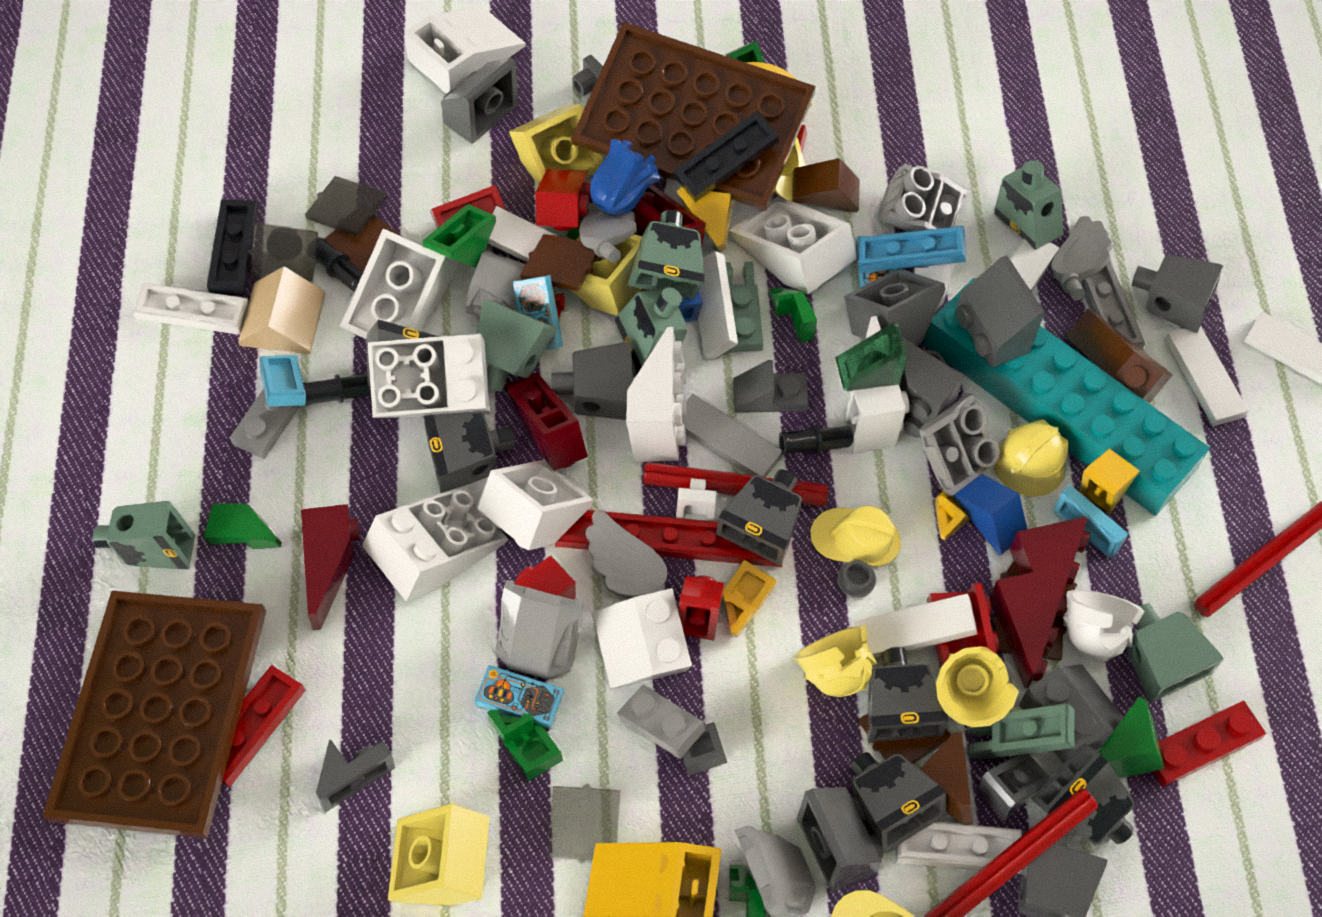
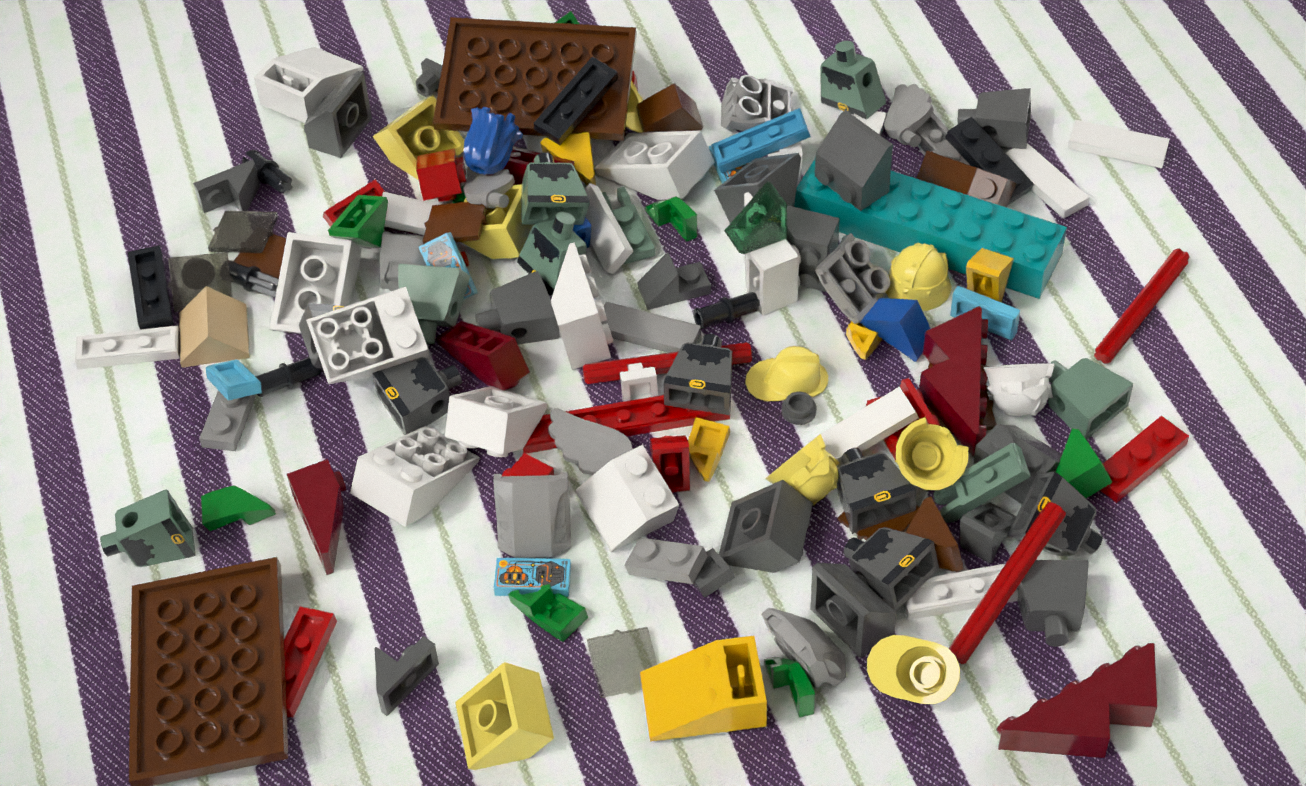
camera: 10 degrees left, 10 degrees down
(349, 149) = (232, 185): none -> dark grey slope
(391, 142) = (269, 172): none -> black axle
(777, 715) = (766, 529): none -> dark grey slope
(1151, 332) = (984, 153): none -> black plate

